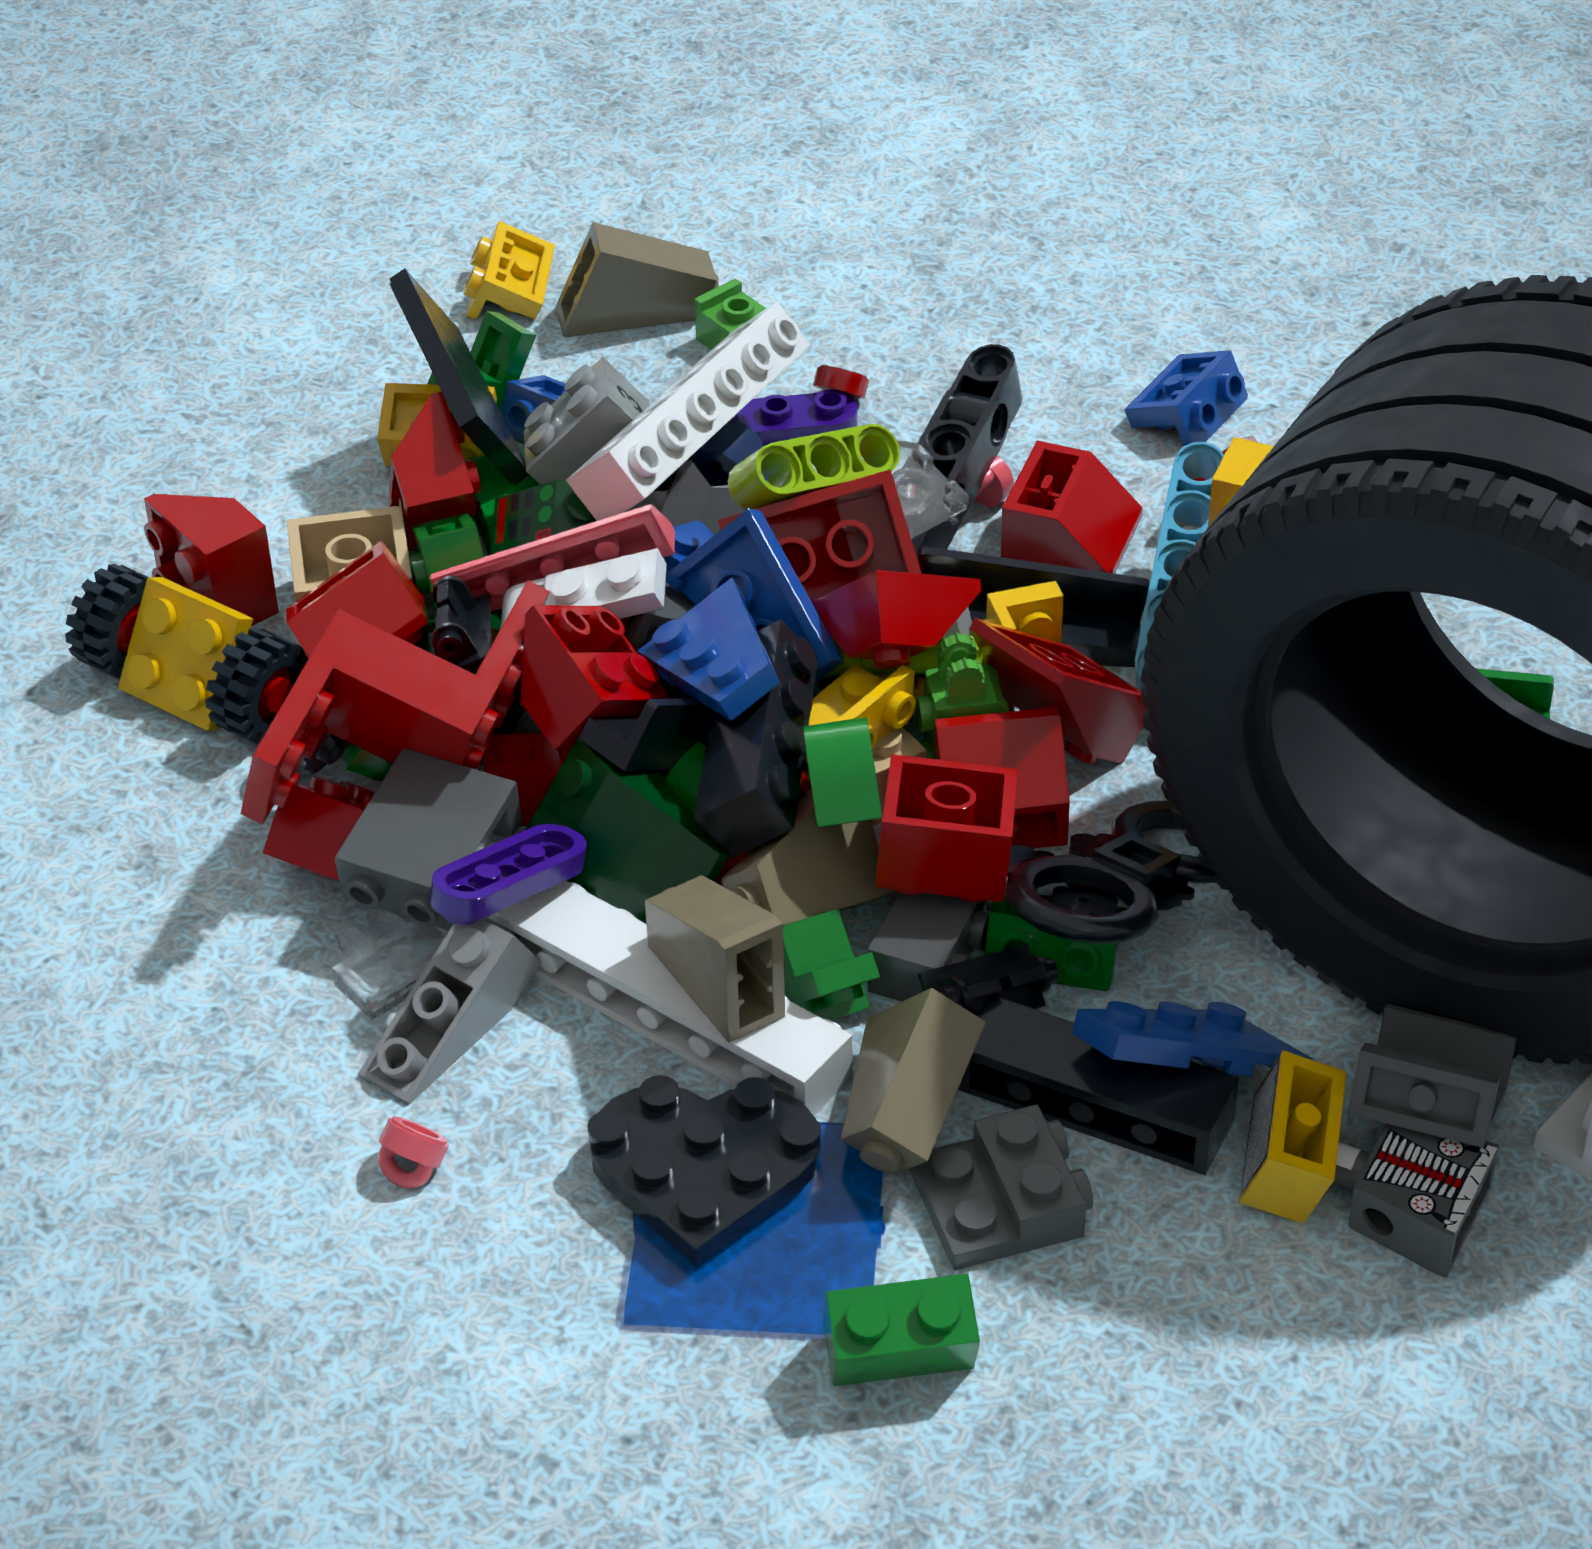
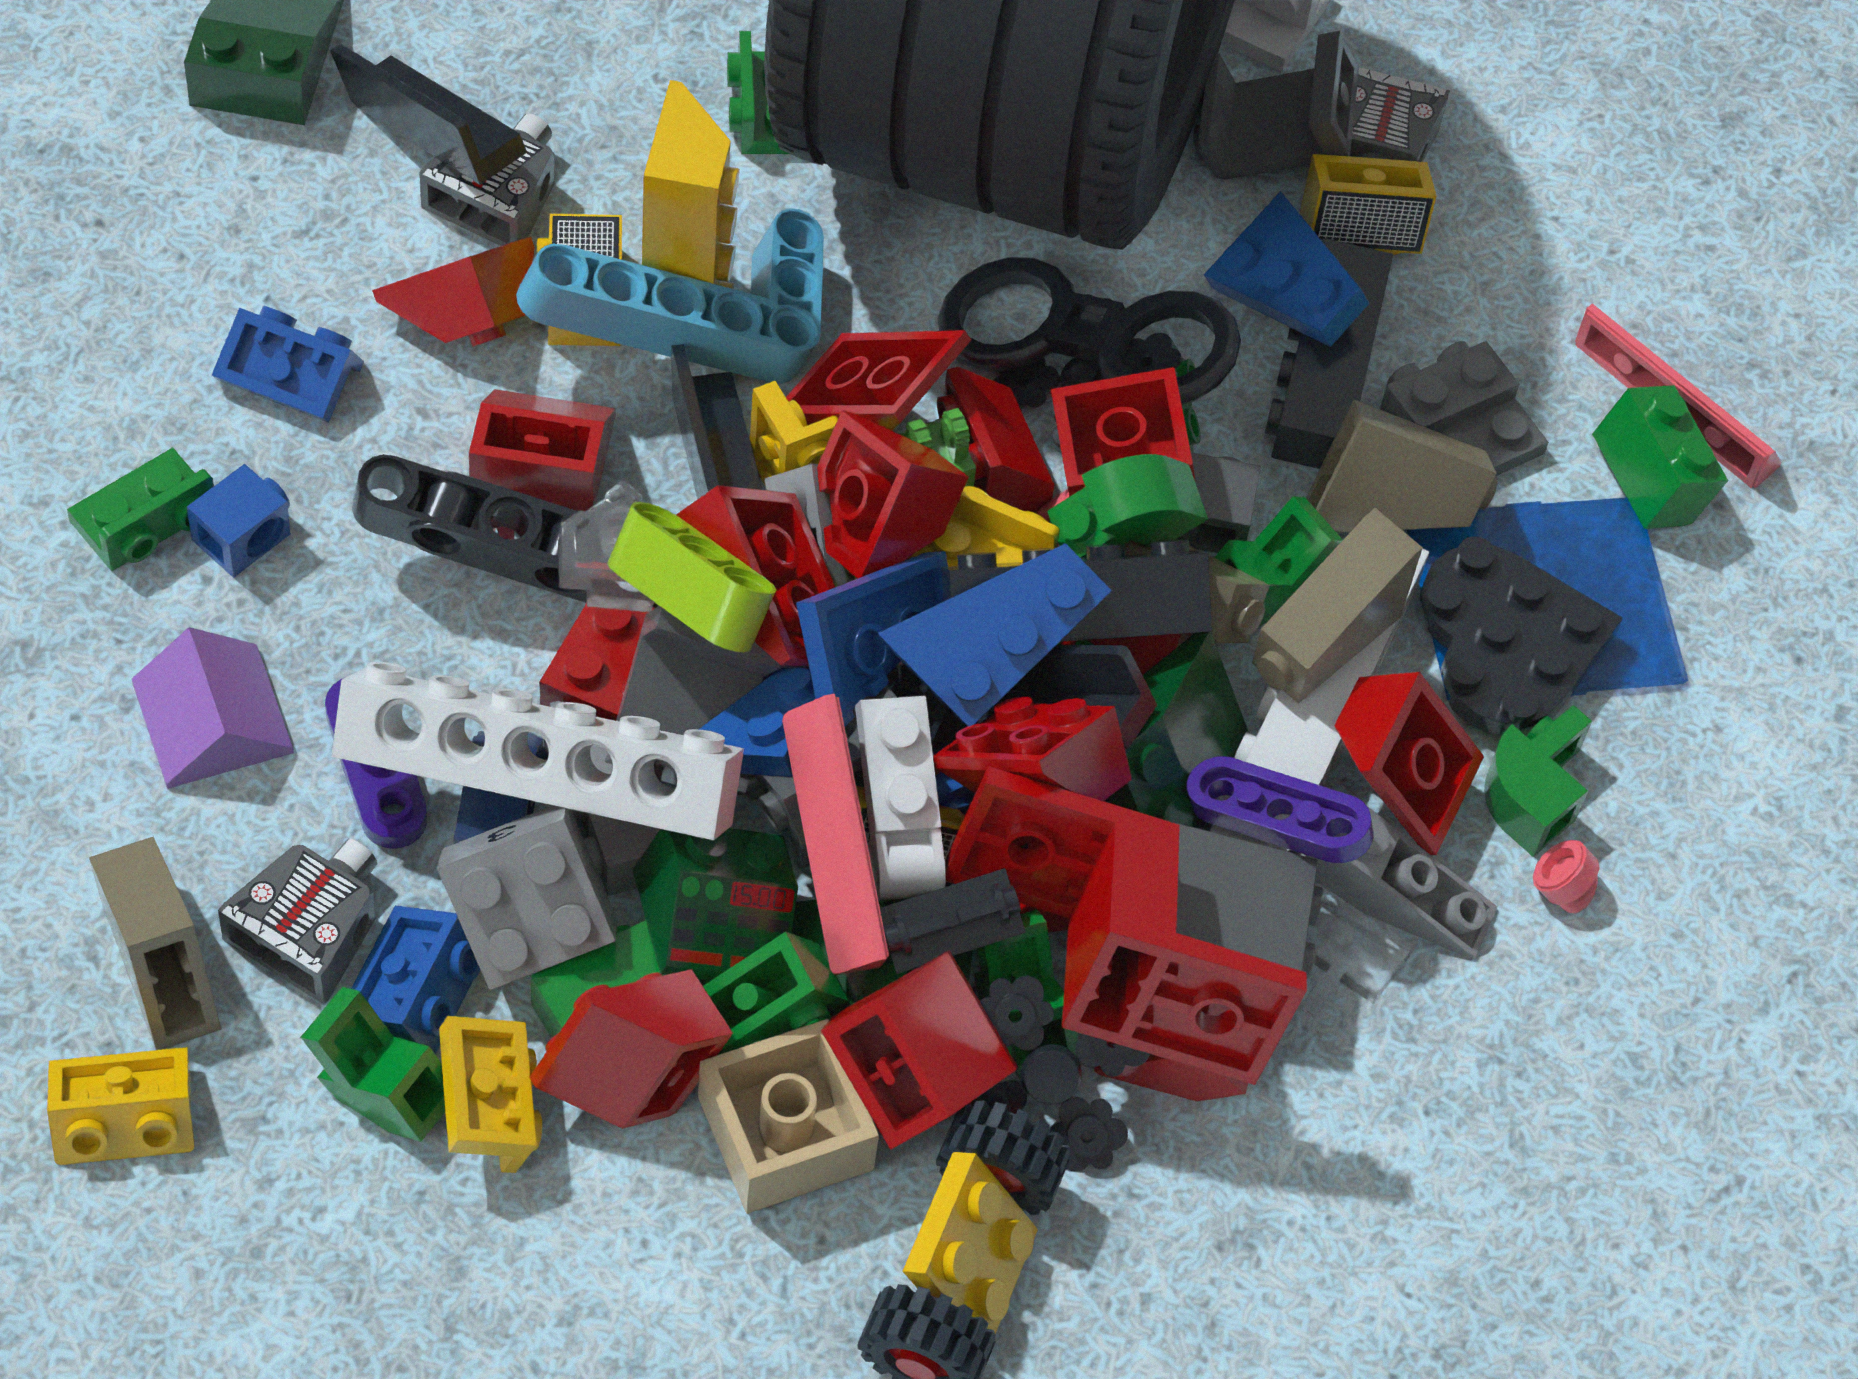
camera: 110 degrees left, 15 degrees up
(213, 550) = (817, 1259): red slope -> none
(458, 377) = (508, 1011): black tile -> none
(525, 1130) = (1528, 786): none -> green brick
(550, 999) = (1410, 752): none -> red slope
(637, 347) = (304, 916): none -> torso
(722, 312) = (204, 837): bright green brick -> none
(842, 380) = (311, 694): red tile -> none
(852, 336) = (209, 707): none -> medium lavender slope
(1000, 1395) = (1640, 367): none -> coral slope
(1005, 974) = (1275, 447): black hinge -> none
(1034, 347) = (239, 519): none -> blue brick
(1049, 318) = (139, 509): none -> green bracket

